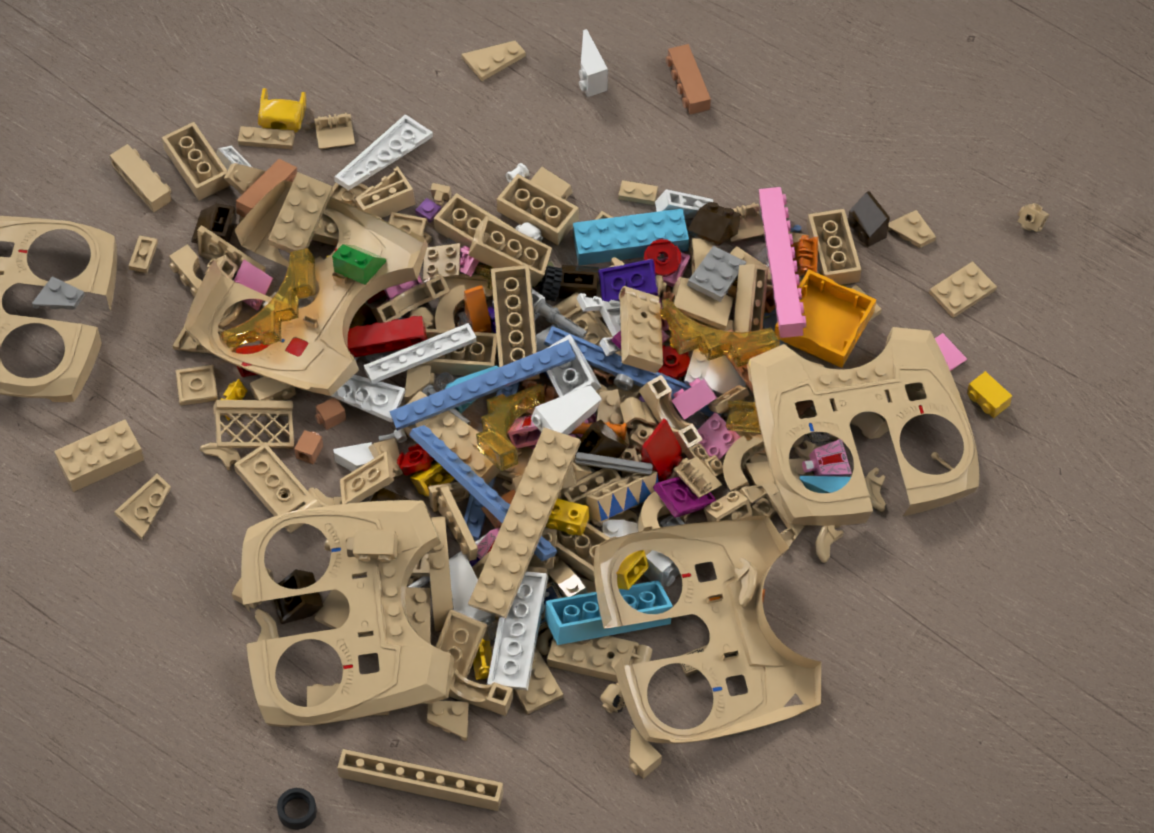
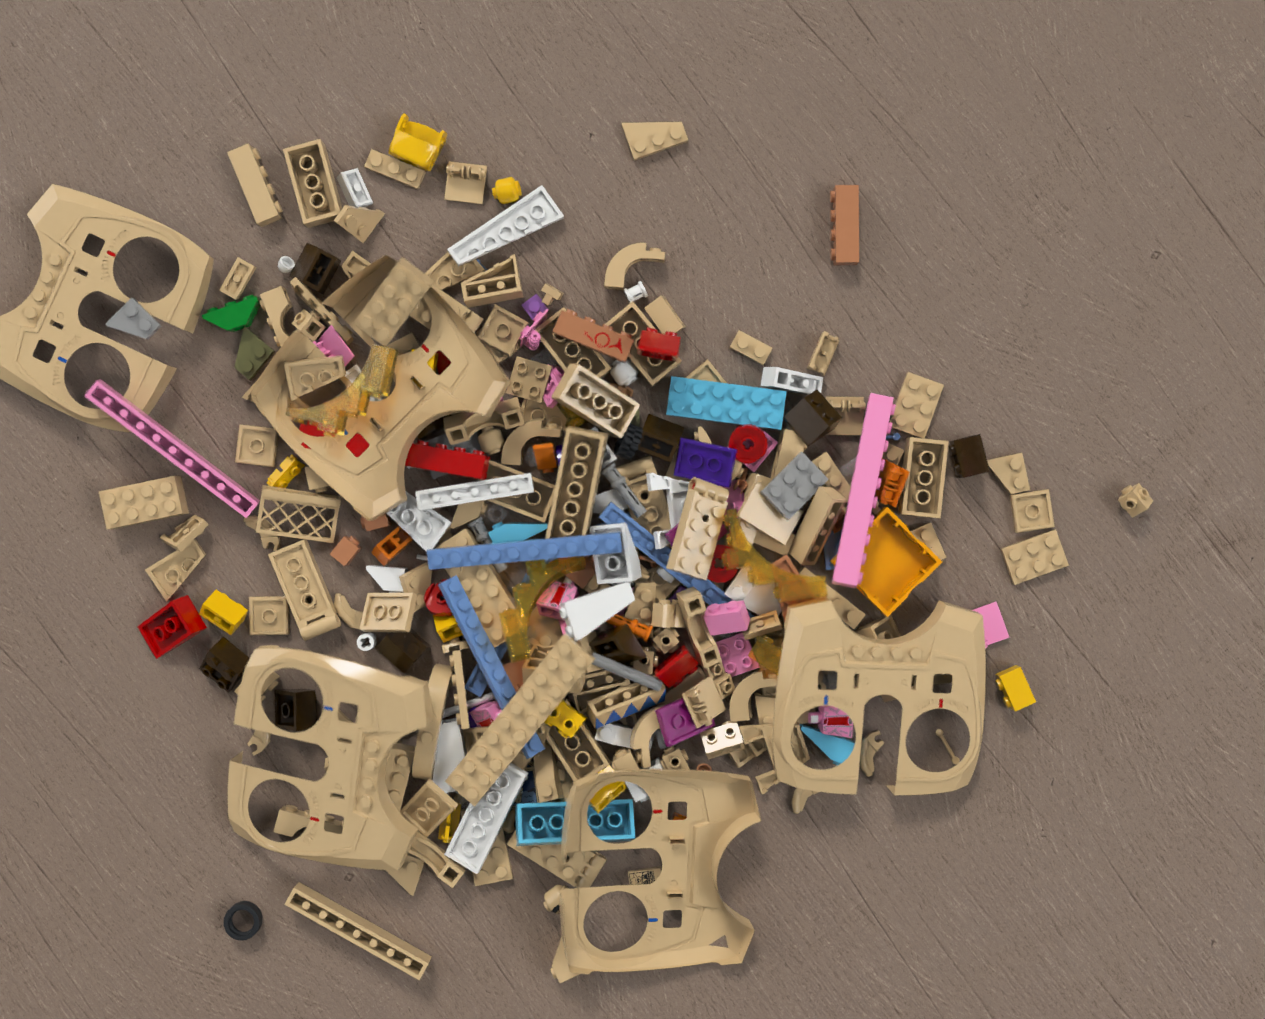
camera: 15 degrees right, 30 degrees up
(121, 390) = (172, 448): none -> bright pink brick
(146, 283) = (234, 315): none -> green slope
(146, 472) = (185, 533): none -> tan wing
(152, 556) = (172, 626): none -> red slope
(172, 312) = (251, 354): none -> olive wing
(185, 232) = (286, 264): none -> white hinge
(202, 527) = (223, 612): none -> yellow brick
(215, 576) = (224, 664): none -> dark brown slope
(237, 300) = (310, 374): none -> tan wing
(241, 519) = (268, 615): none -> tan tile
(273, 176) = (377, 241): nougat brick -> none
(354, 427) = (391, 545): none -> orange slope
(356, 263) = (438, 375): green slope -> none
(374, 125) = (507, 190): none -> yellow head
(375, 545) = (362, 724): tan brick -> none
(434, 220) = (530, 336): none -> bright pink hinge
(491, 203) = (595, 337): none -> nougat brick
(503, 148) = (627, 257): none -> tan arch
(553, 193) = (659, 345): none -> red slope
(593, 69) = (748, 190): white slope -> none
(705, 178) = (823, 353): none -> tan hinge
(748, 578) = (714, 833): tan piece -> none
(804, 197) = (916, 405): none -> tan plate
(945, 254) = (1032, 511): none -> tan tile

